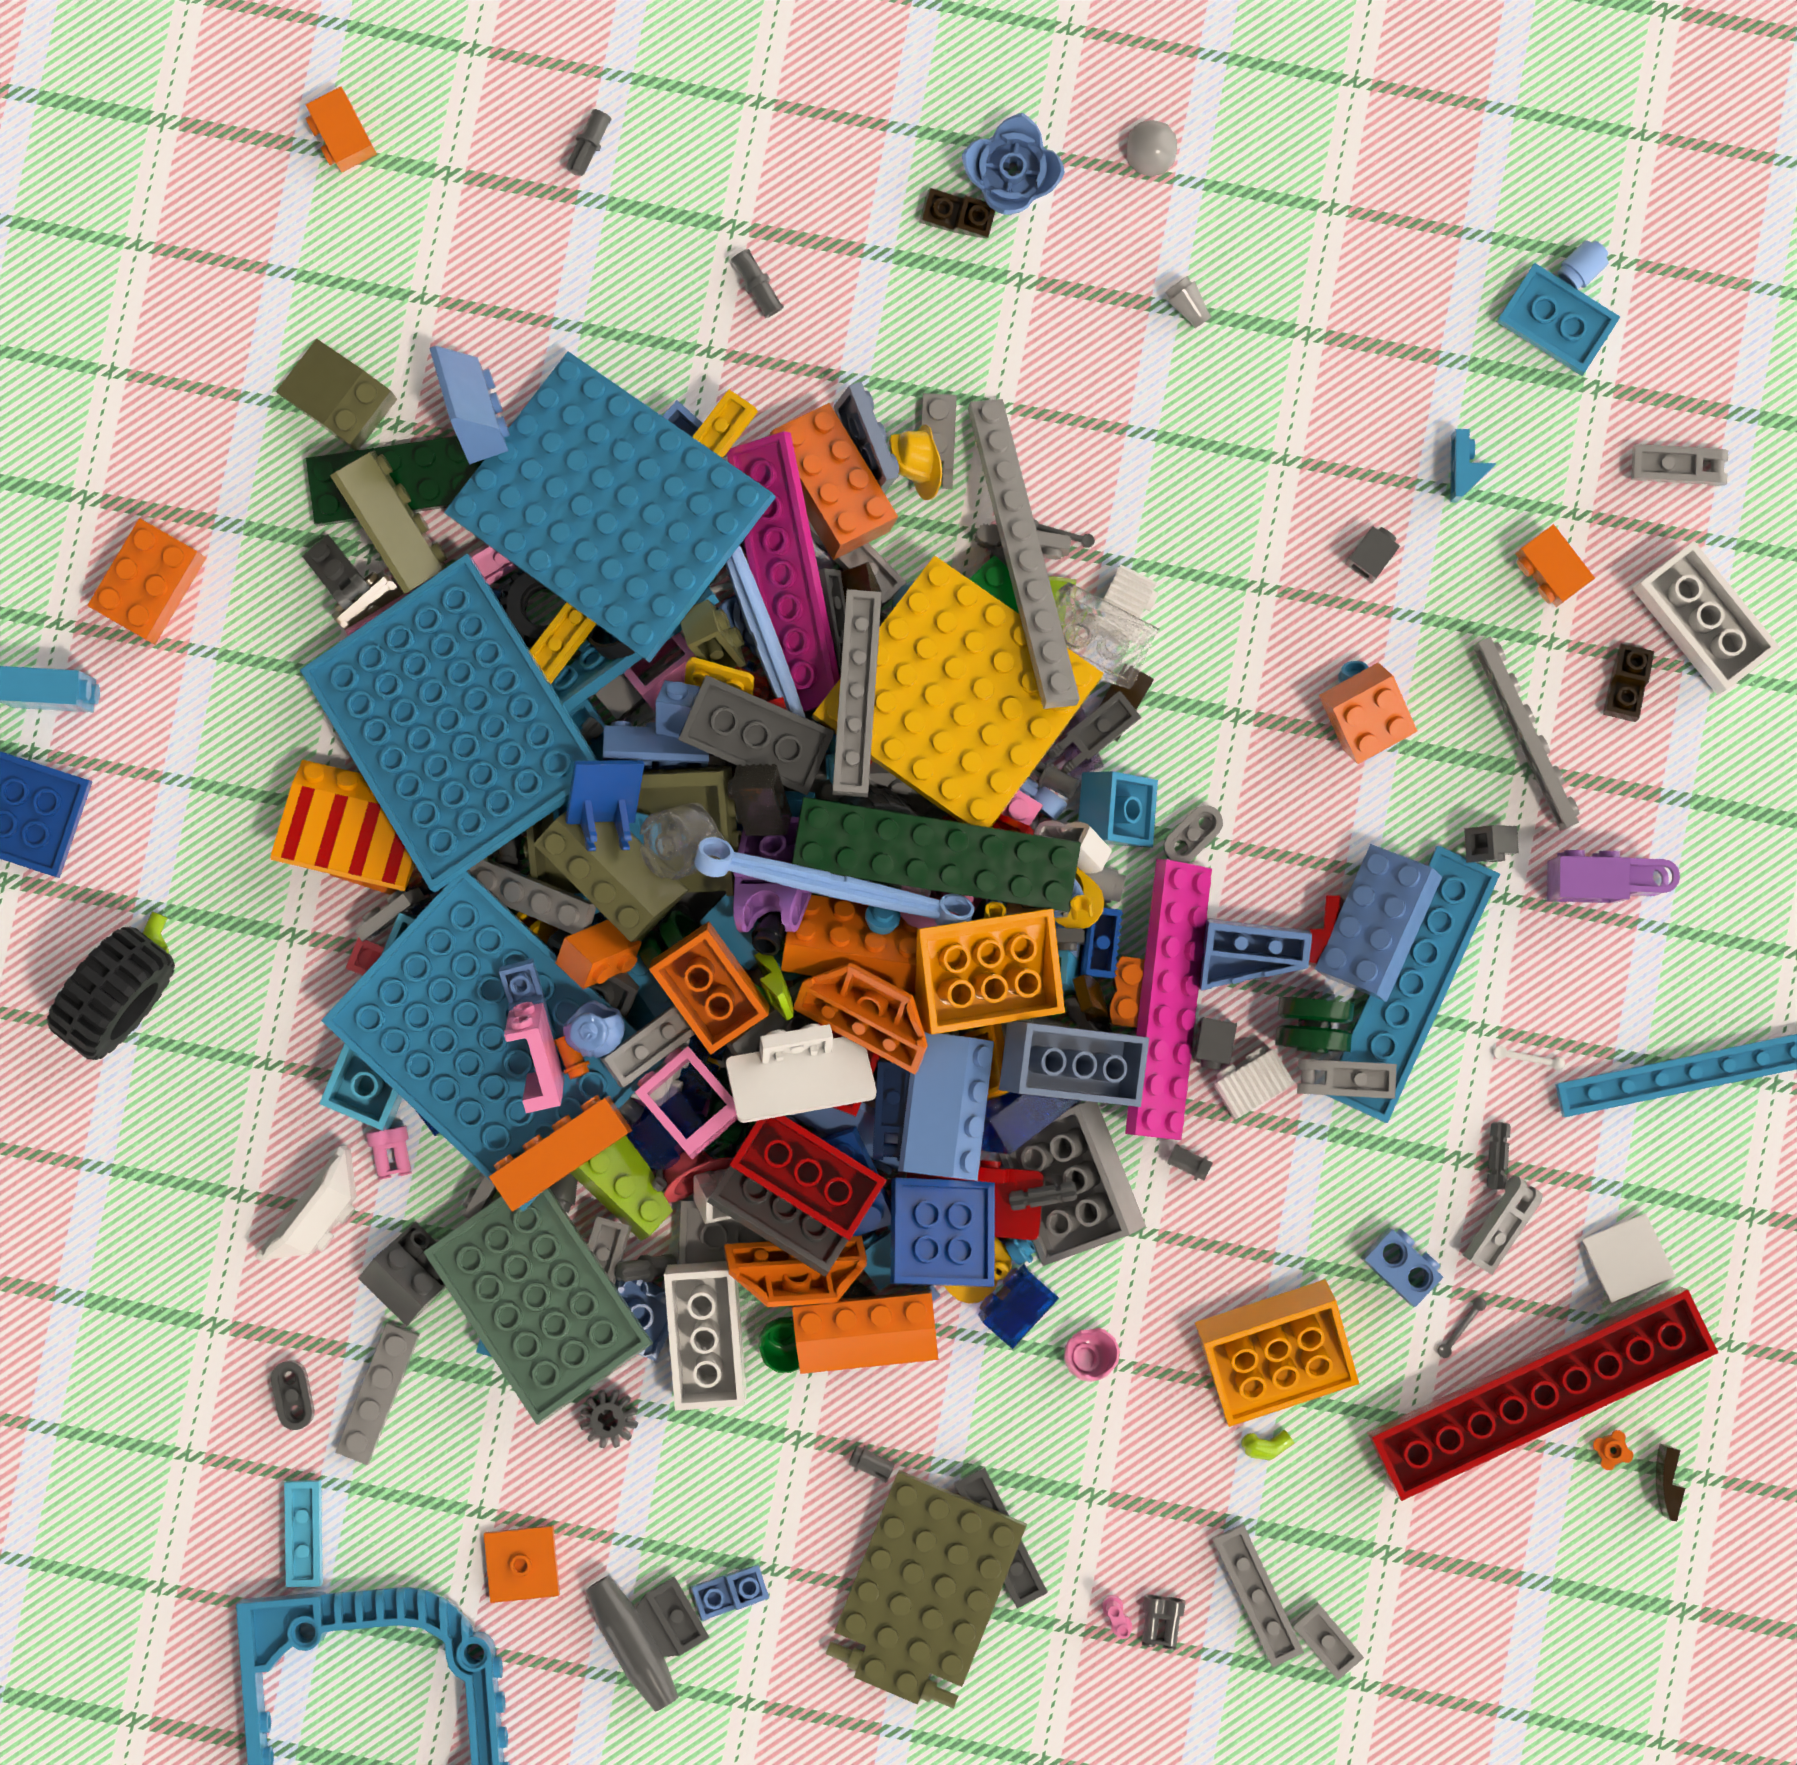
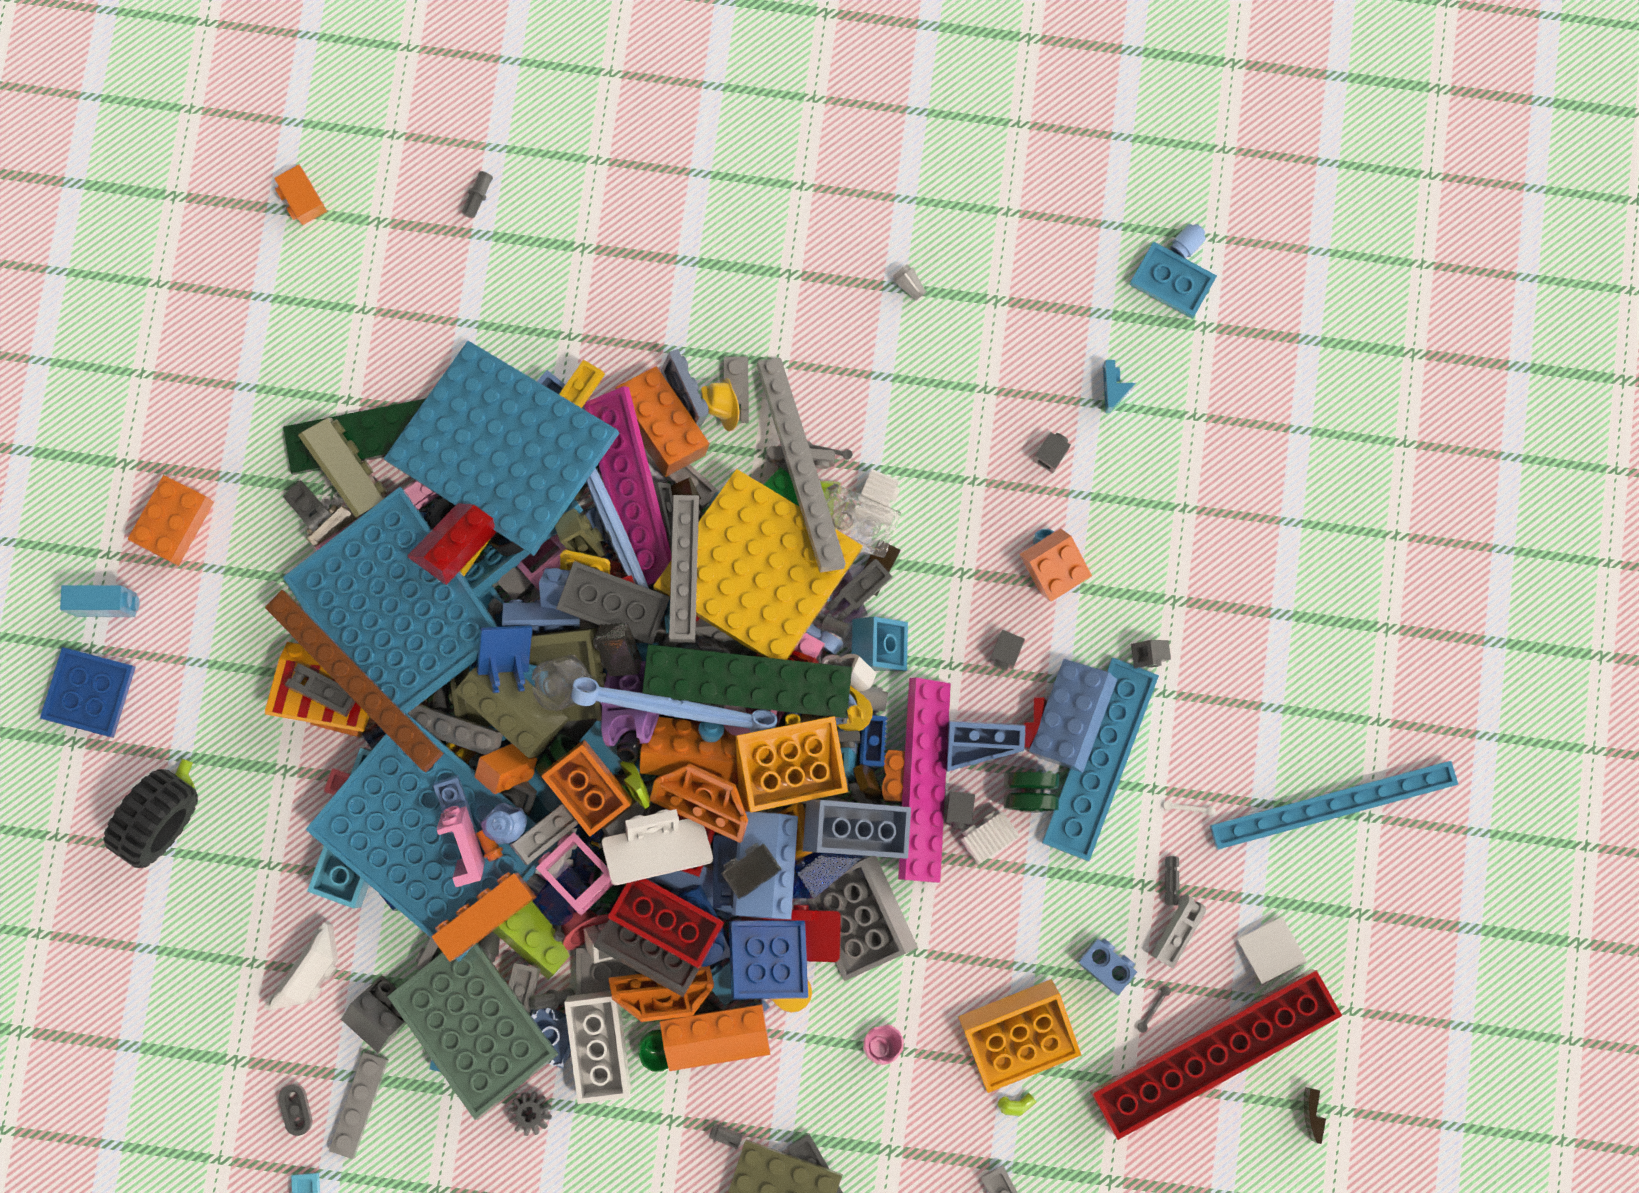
camera: 10 degrees left, 5 degrees down
(337, 394) = (304, 381): olive slope -> none
(351, 831) = (321, 690): none -> dark grey plate
(378, 920) = (348, 754): light grey plate -> none
(387, 1139) = (365, 915): bright pink piece -> none
(395, 821) = (354, 681): none -> dark orange plate
(471, 403) = (399, 380): medium blue slope -> none
(539, 636) = (453, 541): none -> red slope
(757, 283) = (601, 286): dark grey pin -> none
(928, 1113) = (751, 870): none -> clear smoke brick
(957, 214) = (743, 231): dark brown slope -> none
(1002, 1261) = (814, 978): yellow arm -> none
(1016, 142) = (783, 178): medium blue brick -> none
(1017, 1305) = (826, 1011): clear blue brick -> none
(1020, 1250) = (827, 970): dark azure plate -> none
(1043, 1195) = (840, 928): dark grey axle -> none
(1151, 148) = (877, 177): light grey hair -> none
(1190, 1162) = (947, 898): dark grey pin -> none
(1192, 835) = (935, 660): light grey plate -> none
(1292, 827) = (1006, 650): none -> dark grey brick
(1348, 1078) = (1058, 830): light grey plate -> none
(1533, 746) = (1166, 565): light grey plate -> none
(1553, 566) = (1182, 453): orange brick -> none
(1603, 1447) = (1278, 1095): orange plate -> none
(1606, 877) = (1235, 673): medium lavender brick -> none
(1628, 682) = (1241, 533): dark brown slope -> none
(1678, 464) = (1266, 377): light grey plate -> none
(1706, 618) = (1293, 483): white brick -> none

